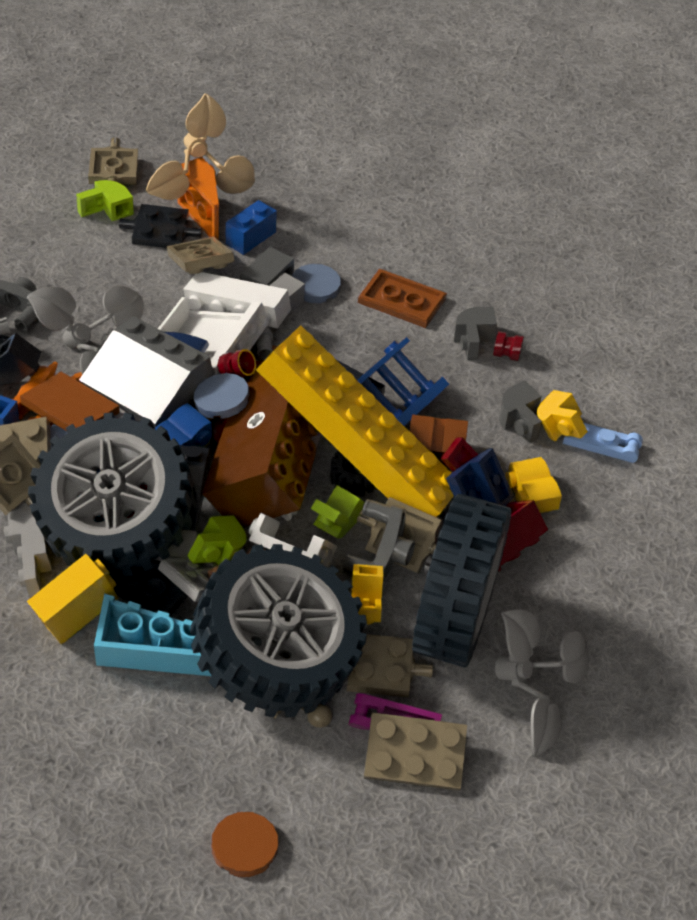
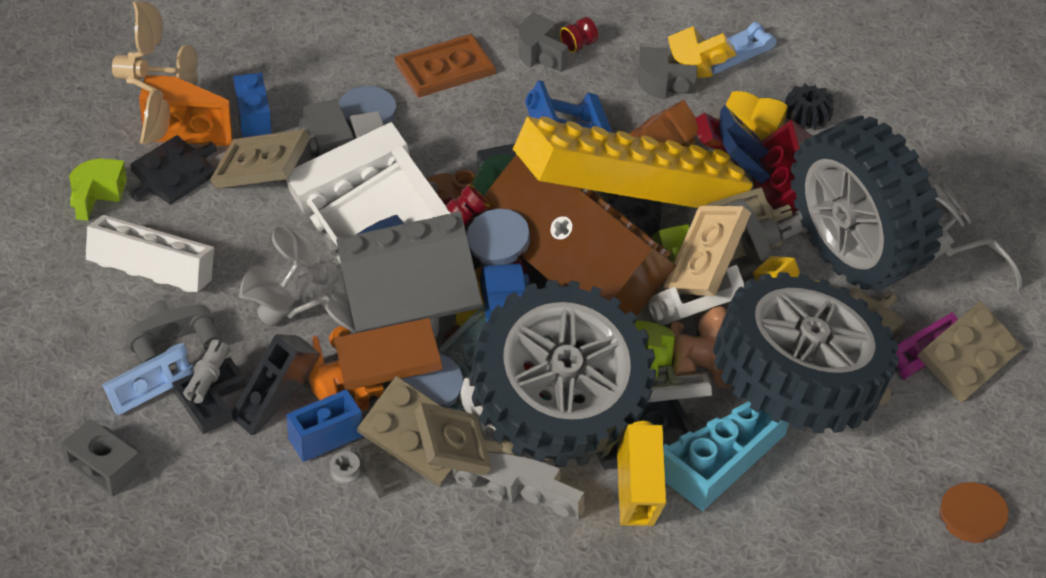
camera: 50 degrees left, 0 degrees up
(66, 252) = (149, 253): none -> white brick
(113, 164) = (42, 153): dark tan plate -> none
(321, 515) = (708, 249): none -> tan plate
(583, 512) = (809, 106): none -> black gear

